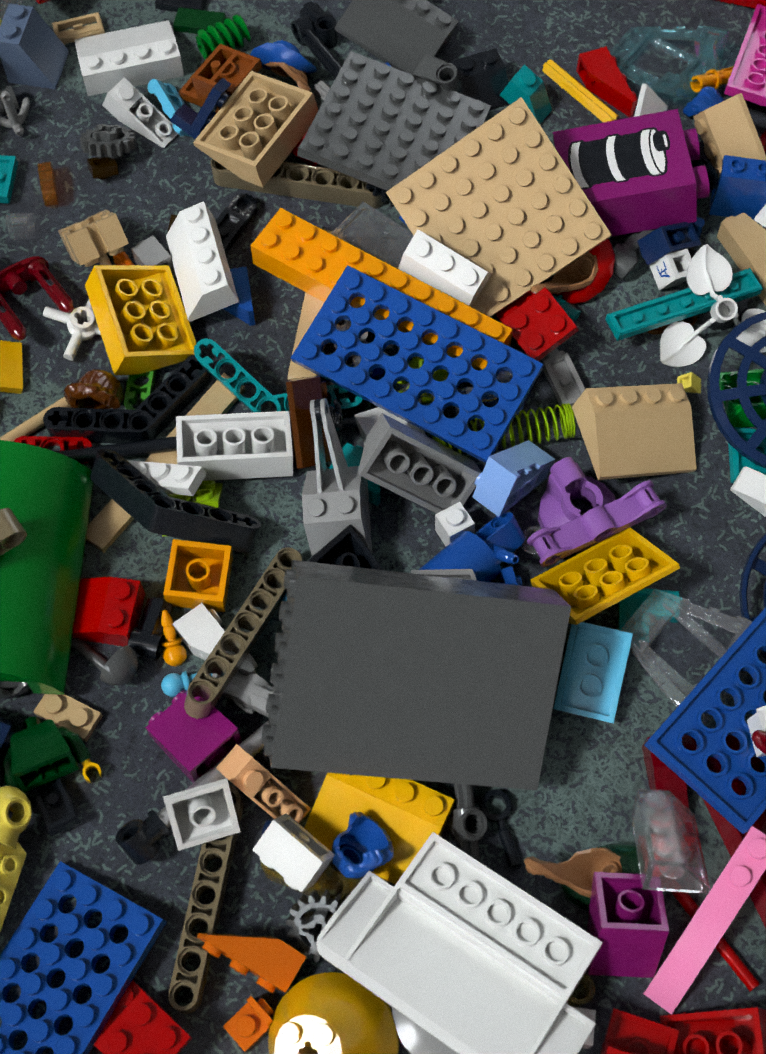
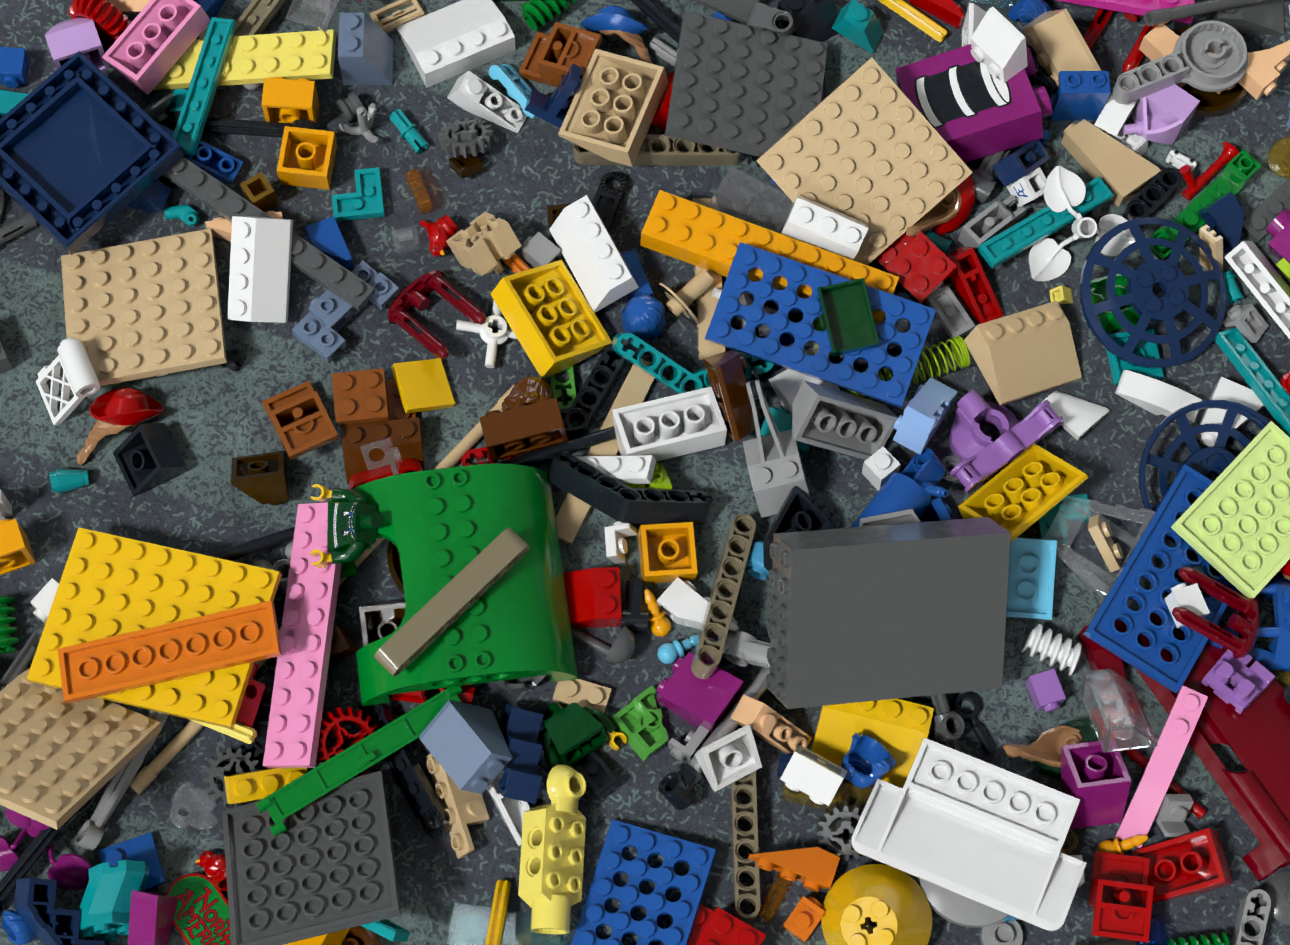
camera: 15 degrees left, 5 degrees up
(54, 223) = (439, 233): none -> red animal
(56, 130) = (408, 131): none -> teal axle
(74, 419) = (523, 428): none -> reddish brown slope
(129, 770) = (647, 731): none -> bright green slope
(147, 555) = (616, 543): none -> white bracket
(174, 784) = (693, 742): none -> light grey bracket
(220, 992) = (774, 898): none -> clear orange axle
(240, 334) = (644, 317): none -> blue hair
(288, 317) = (679, 302): none -> tan piece
(443, 355) = (847, 317): none -> dark green container
(591, 804) = (1045, 691): none -> medium lavender brick
(594, 353) = (973, 285): none -> red slope
(609, 757) = (1053, 648): none -> white piece
(623, 295) = (990, 223): none -> light grey hinge
(643, 1008) = (1117, 847): none -> light orange bar
(663, 114) = (999, 46): none -> white slope
(683, 506) = (1078, 413): none -> white slope
(687, 641) = (1101, 535): none -> tan plate
(717, 981) = (1173, 814): none -> light grey bracket

